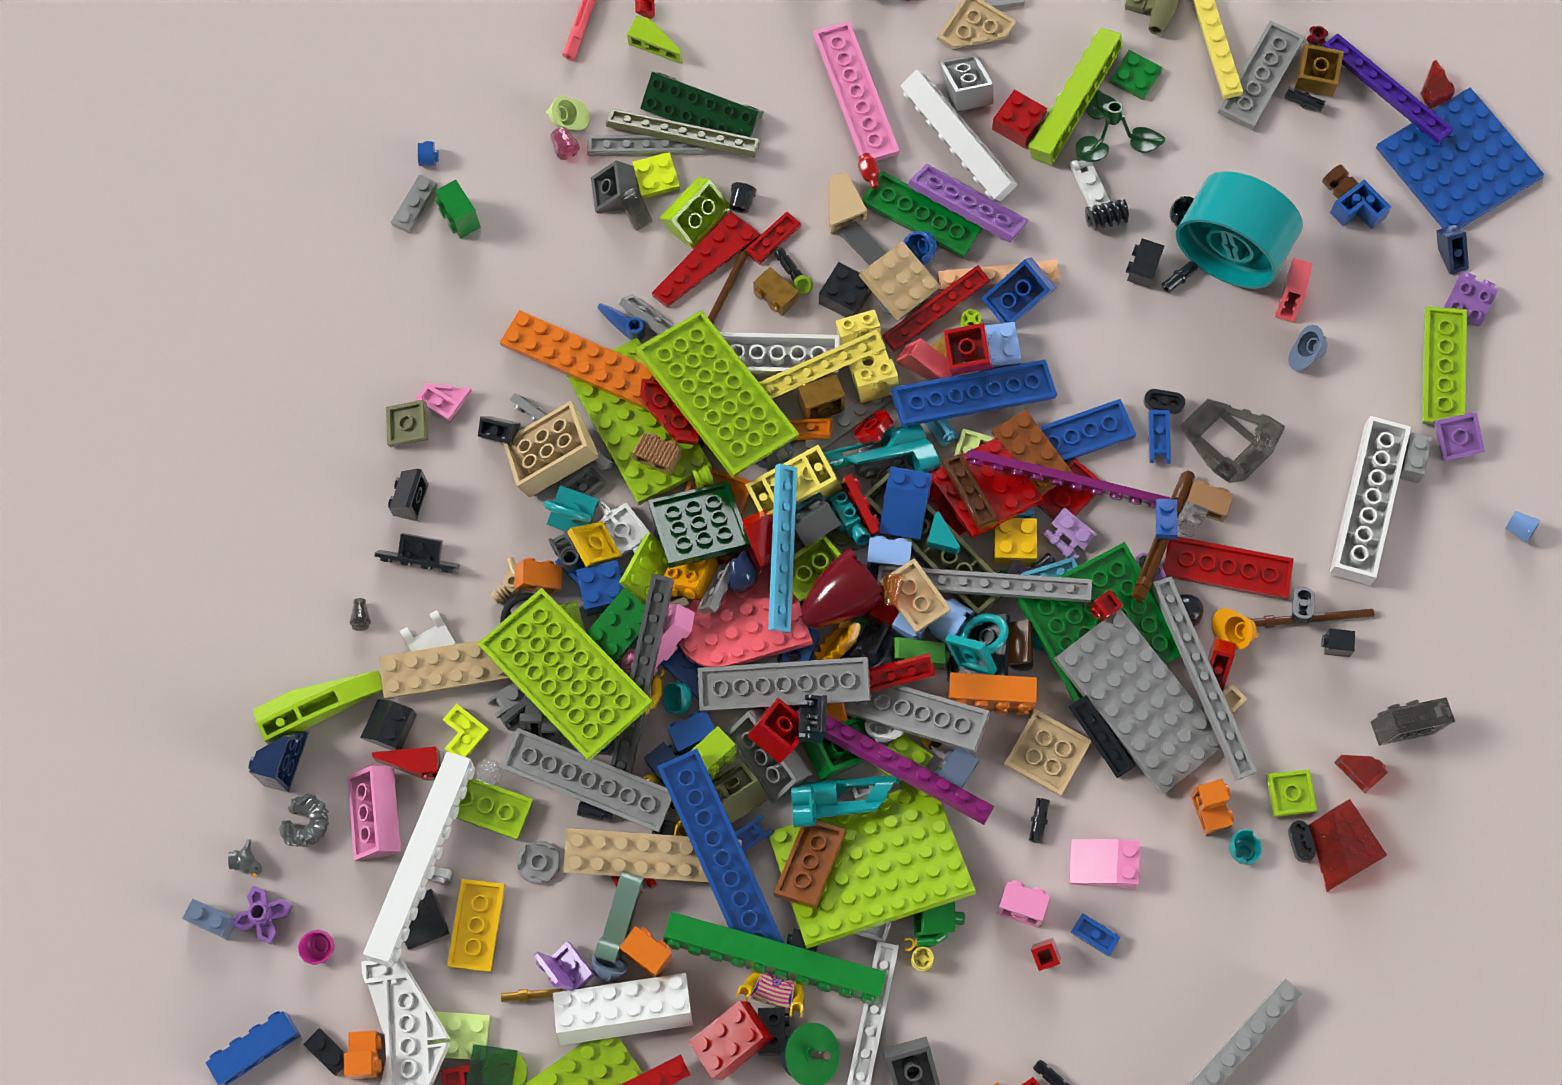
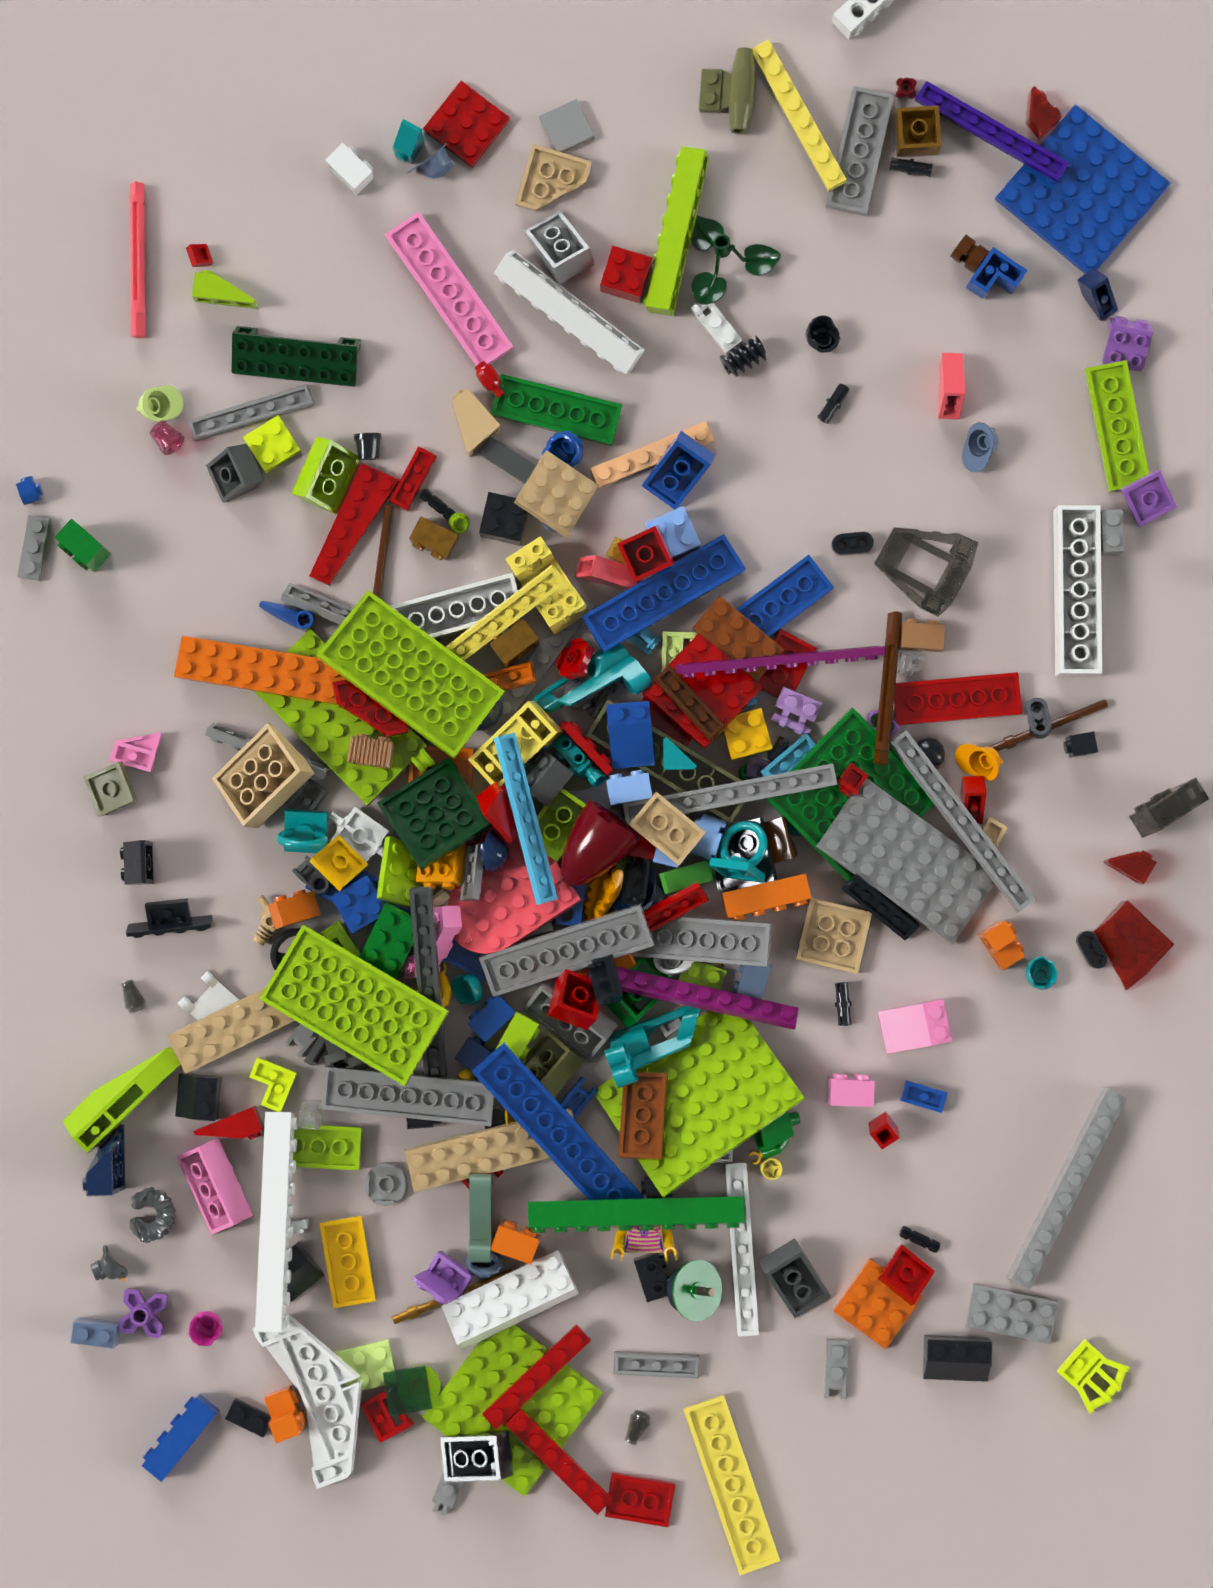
camera: 20 degrees left, 15 degrees up
(498, 429) = (203, 767): black slope -> none
(635, 208) = (264, 491): clear smoke plate -> none
(683, 133) = (285, 390): olive tile -> none
(731, 1040) = (618, 1299): brick -> none
(892, 588) = (645, 831): clear orange cone -> none
(936, 308) = (600, 510): red tile -> none
(968, 203) = (599, 385): medium lavender plate -> none
(970, 316) = (639, 509): lime wheel -> none
(1135, 74) = (731, 187): green plate -> none
(1145, 263) = (795, 400): black brick -> none
(1159, 435) = (856, 581): blue hinge -> none
(1166, 519) = (887, 673): blue plate -> none
(1239, 229) = (883, 347): teal wheel -> none
(1291, 793) = (1071, 906): lime plate -> none

